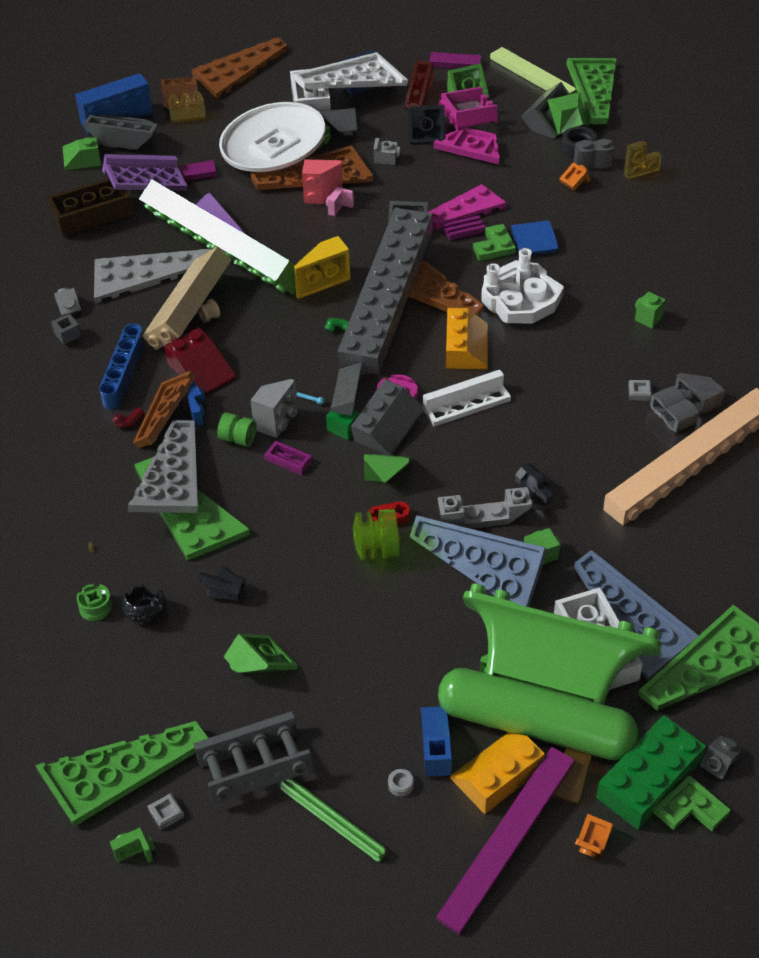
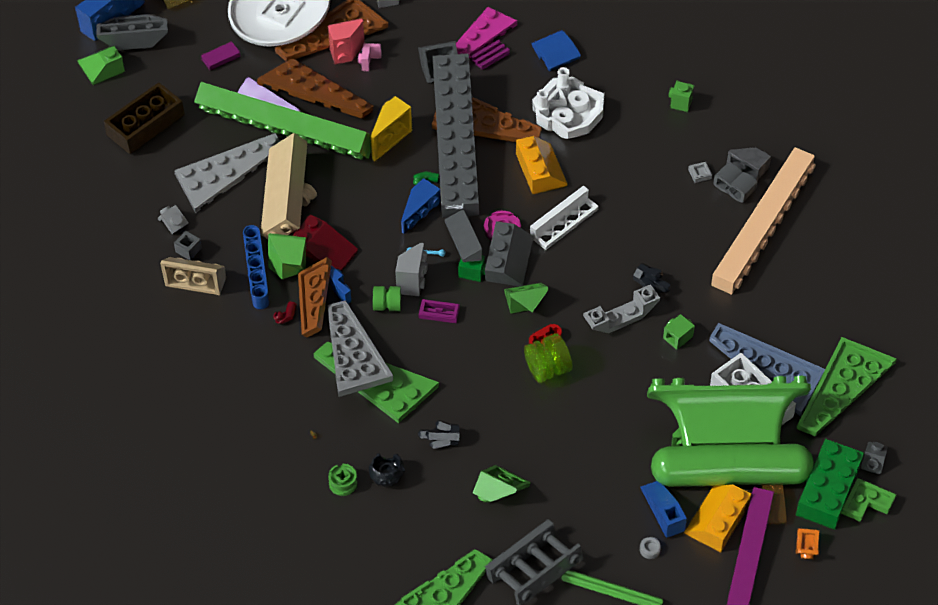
camera: 20 degrees left, 5 degrees up
(55, 357) = (193, 275): none -> tan slope
(138, 165) = (177, 65): medium lavender fence -> none
(156, 359) = (286, 254): none -> bright green slope
(266, 213) = (313, 87): none -> dark orange wing
(318, 347) = (420, 201): none -> blue slope
(484, 557) = (643, 354): sand blue wing -> none
(497, 245) = (526, 64): bright green plate -> none

